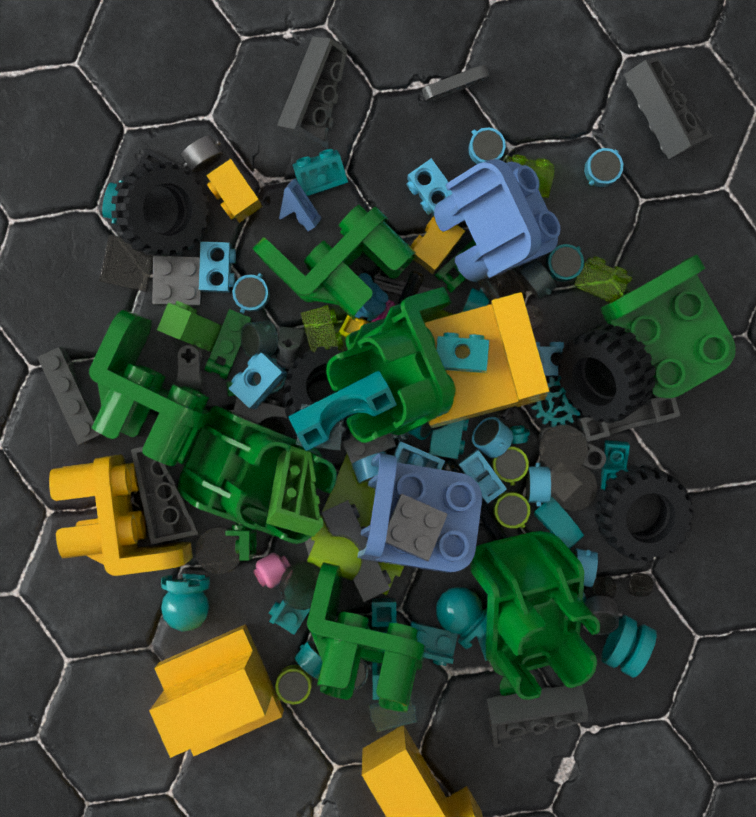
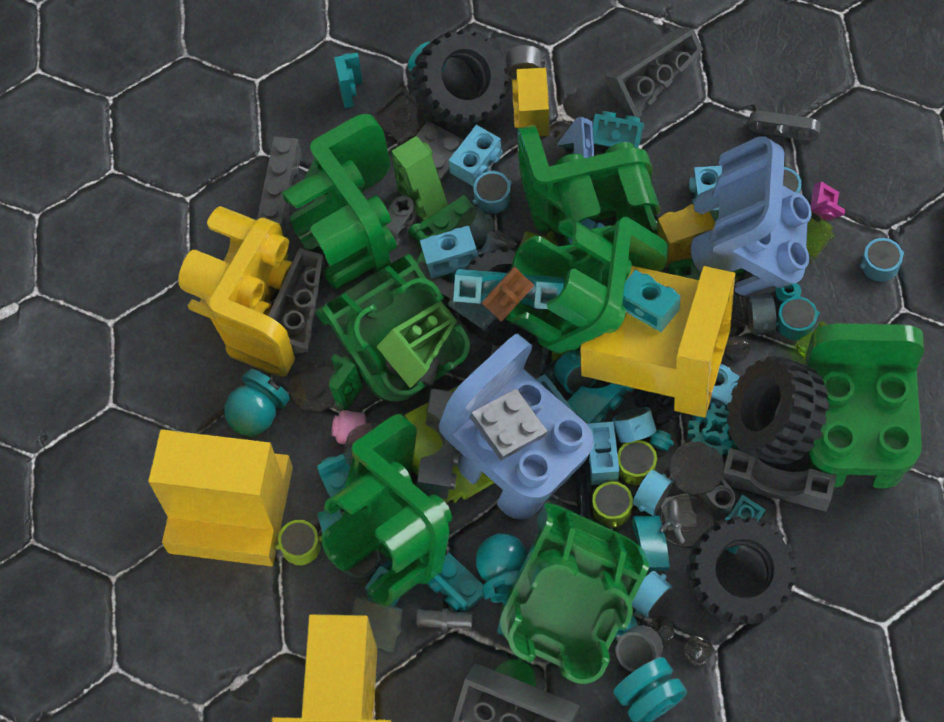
camera: 35 degrees right, 25 degrees down
(54, 257) = (348, 76): none -> teal bracket
(348, 422) = (507, 293): none -> dark orange hips
(441, 675) = (445, 619): none -> dark grey pin
(530, 140) = (825, 202): none -> dark pink bracket
(566, 497) = (673, 520): none -> flat silver bar

